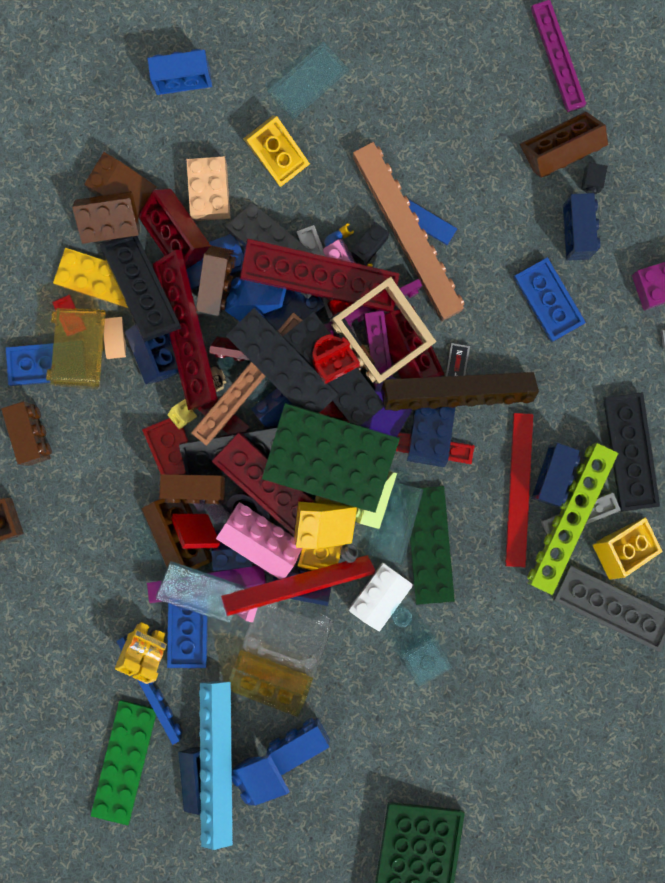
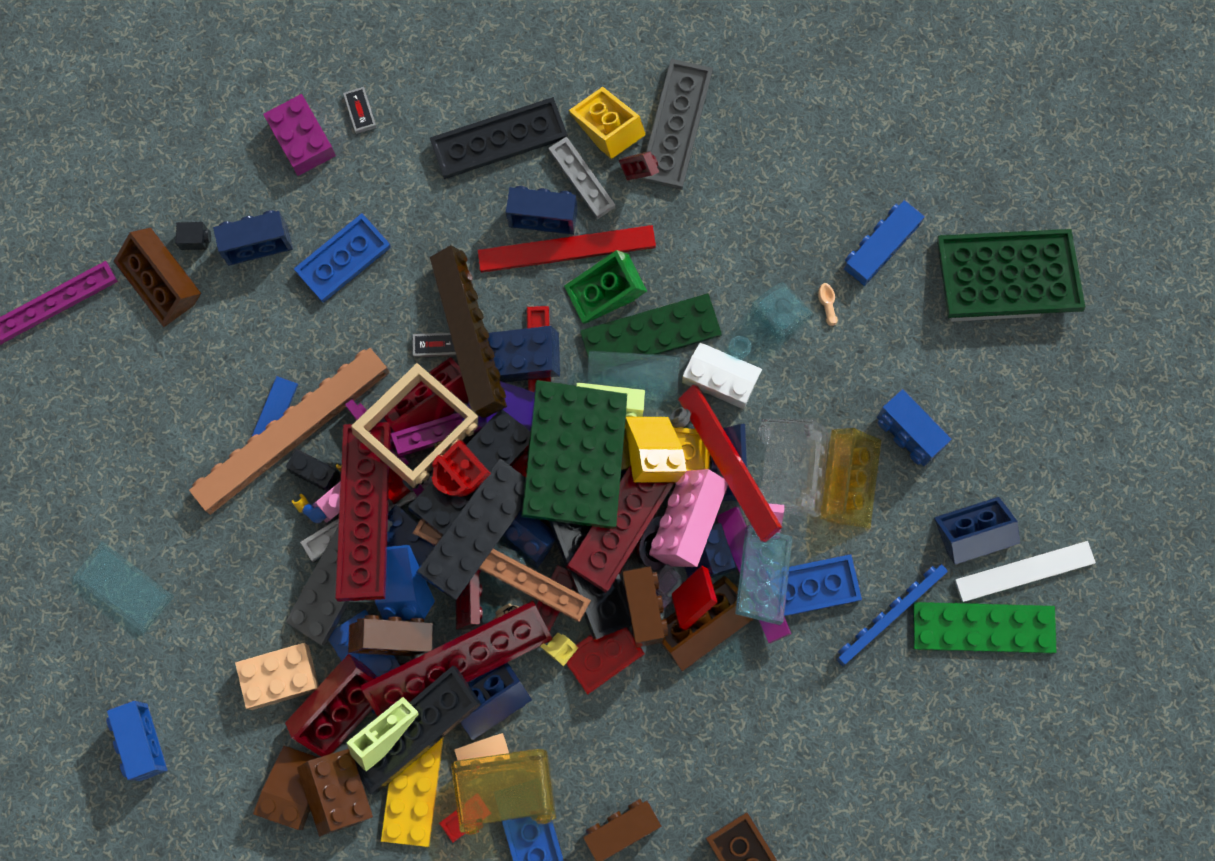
camera: 100 degrees left, 10 degrees down
(140, 260) = (381, 734): none -> yellowish green slope
(142, 654) = (852, 629): yellow hips -> none
(162, 808) = (1024, 571): none -> white tile
(215, 764) = (956, 515): medium azure brick -> none
(258, 780) = (960, 461): blue slope -> none
(276, 150) = (215, 605): yellow slope -> none
(429, 701) = (827, 297): none -> light nougat piece
(468, 764) = (884, 242): none -> blue brick
(477, 515) = (605, 287): none -> green slope
(577, 567) = (639, 165): none -> dark red plate
(606, 459) = (514, 160): lime brick -> none

